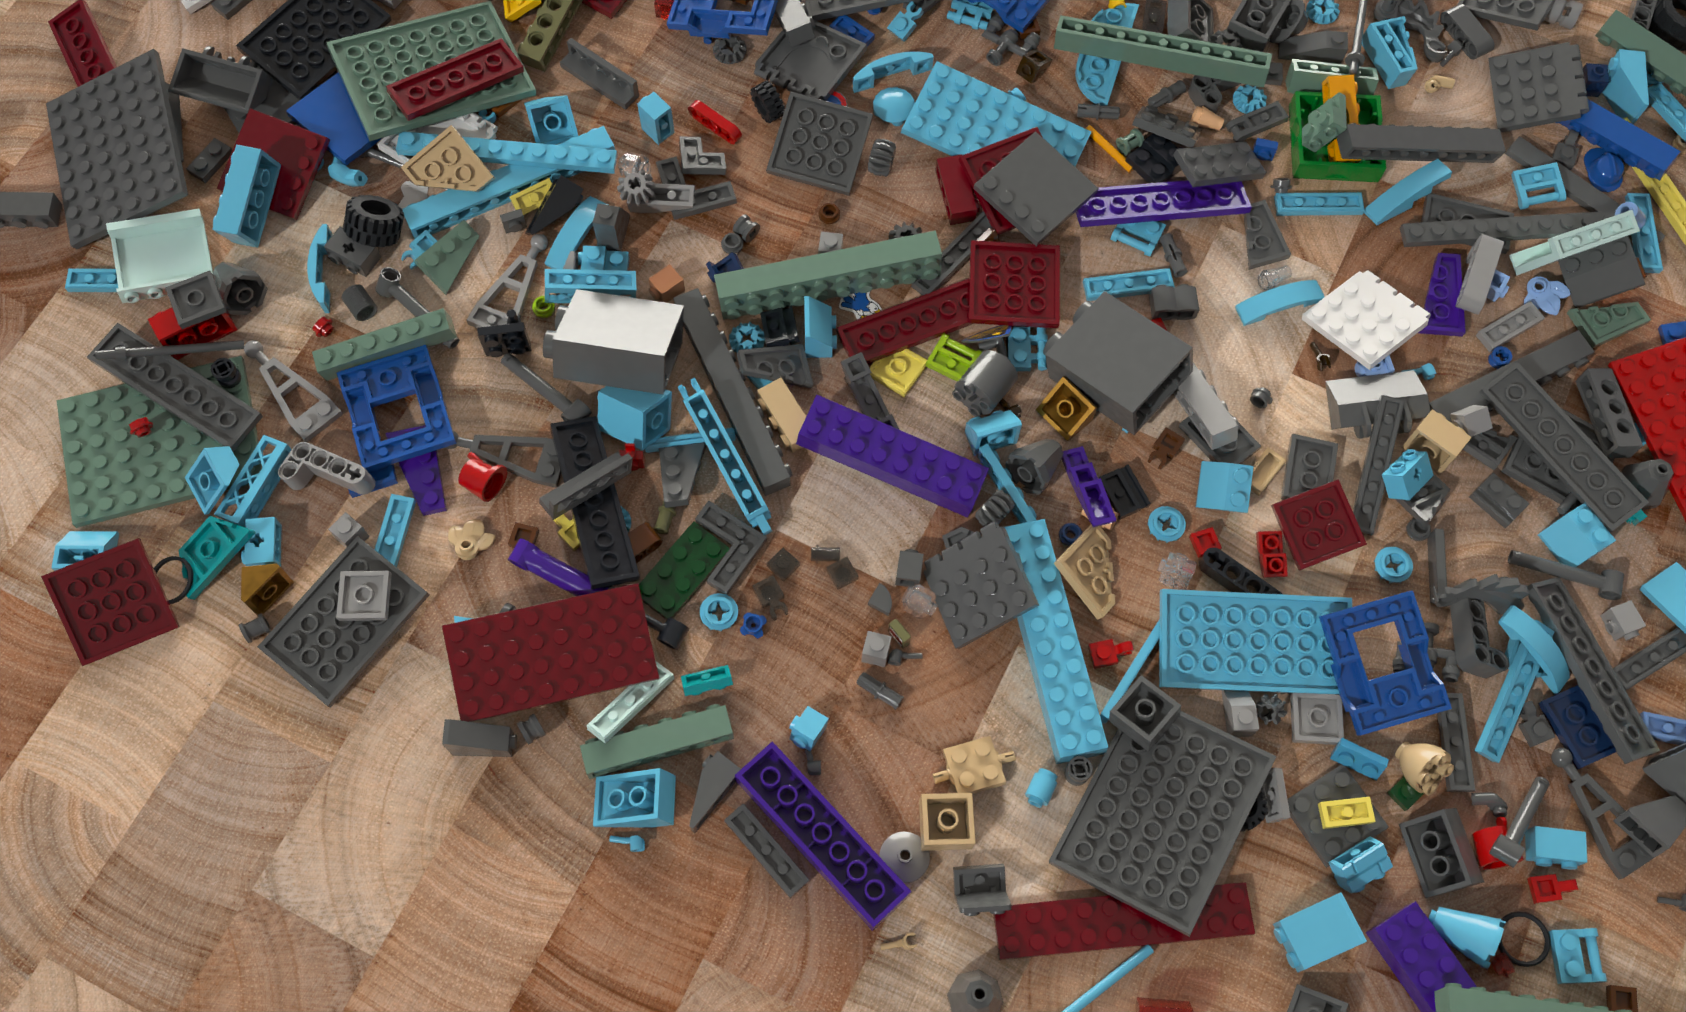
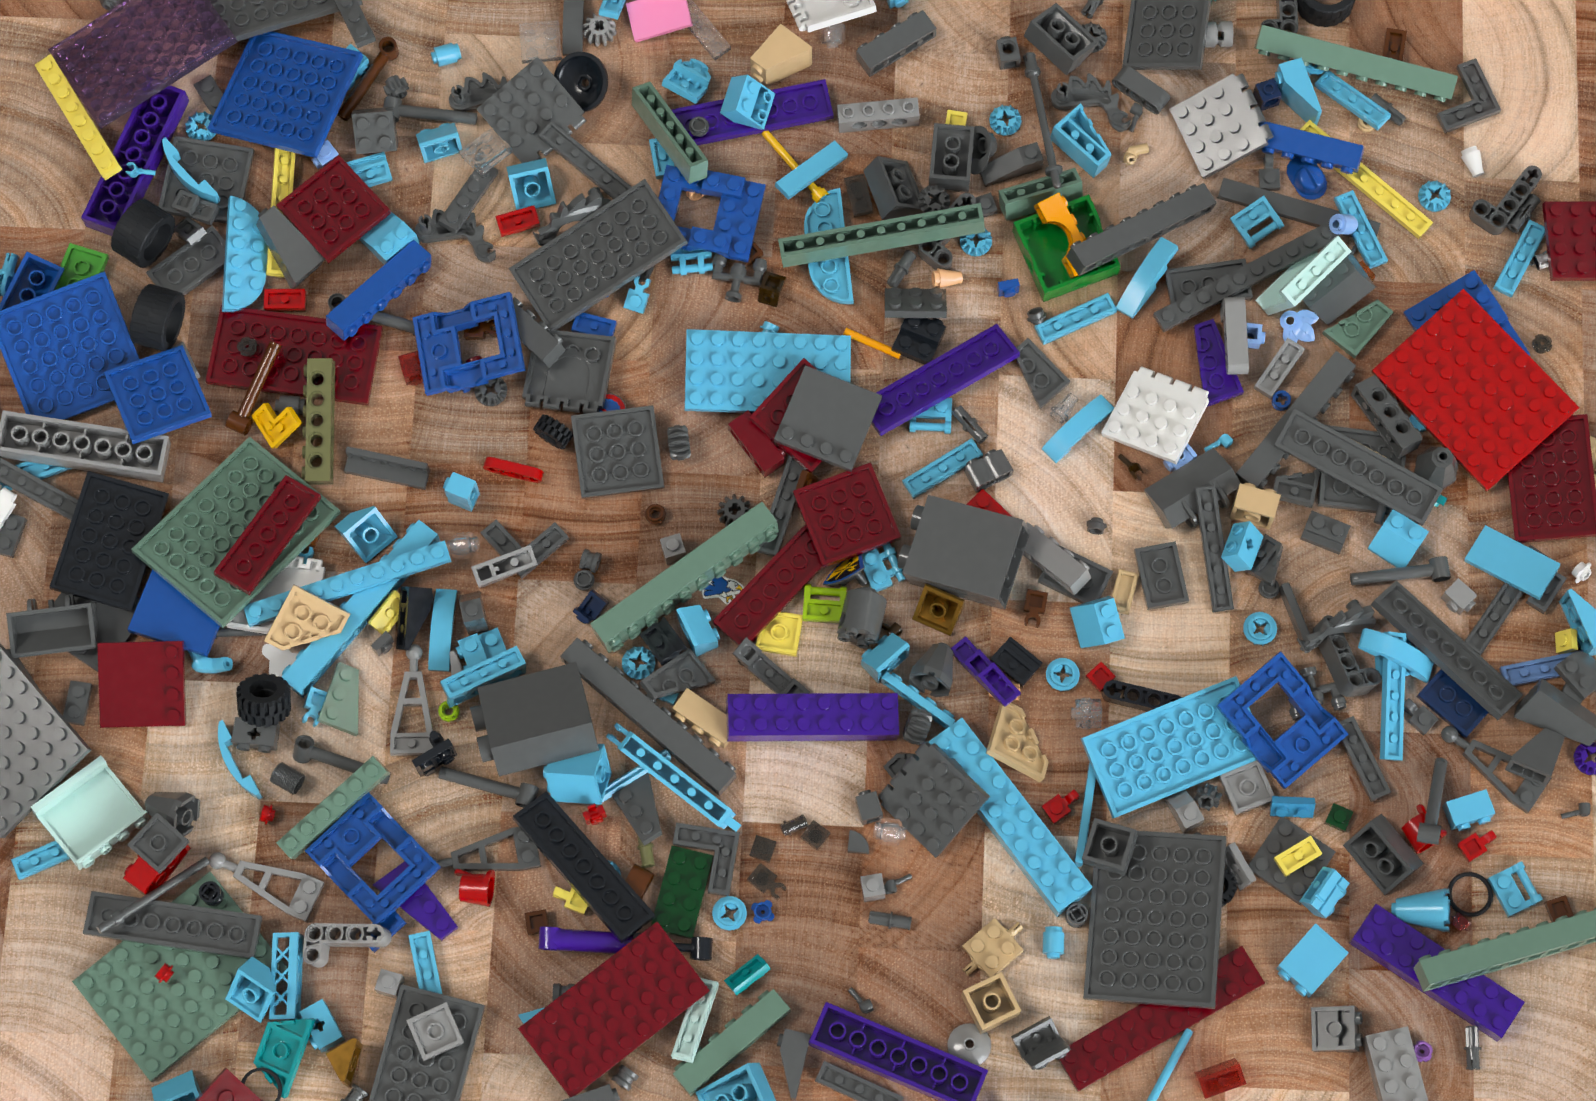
camera: 20 degrees left, 5 degrees up
(246, 196) = (140, 727): medium azure brick -> none
(470, 536) = (492, 940): tan plate -> none
(586, 484) = (572, 856): dark grey fence -> none
(639, 193) = (487, 575): light grey gear -> none
(666, 284) = (546, 644): nougat brick -> none
(699, 162) = (516, 516): dark grey plate -> none
(808, 728) = (847, 977): medium azure brick -> none
(893, 105) = (664, 383): medium azure dish -> none
(899, 633) = (885, 866): olive tile -> none
(915, 61) = (665, 332): medium azure slope -> none
(1072, 528) = (986, 712): dark blue plate -> none
(1098, 111) = (848, 312): dark grey axle -> none
(1130, 141) = (883, 335): sand green bush -> none
(1219, 164) = (975, 321): dark grey plate -> none
(1257, 121) = (991, 261): dark grey plate -> none
(1271, 555) = (1158, 663): red slope -> none
(1318, 524) = (1186, 622): dark red plate -> none
(1325, 123) = (1052, 247): sand green plate -> none
(1424, 765) = (1344, 790): tan piece -> none
(1472, 419) = (1276, 476): light grey brick -> none
(1492, 800) = (1408, 794): dark grey arm -> none

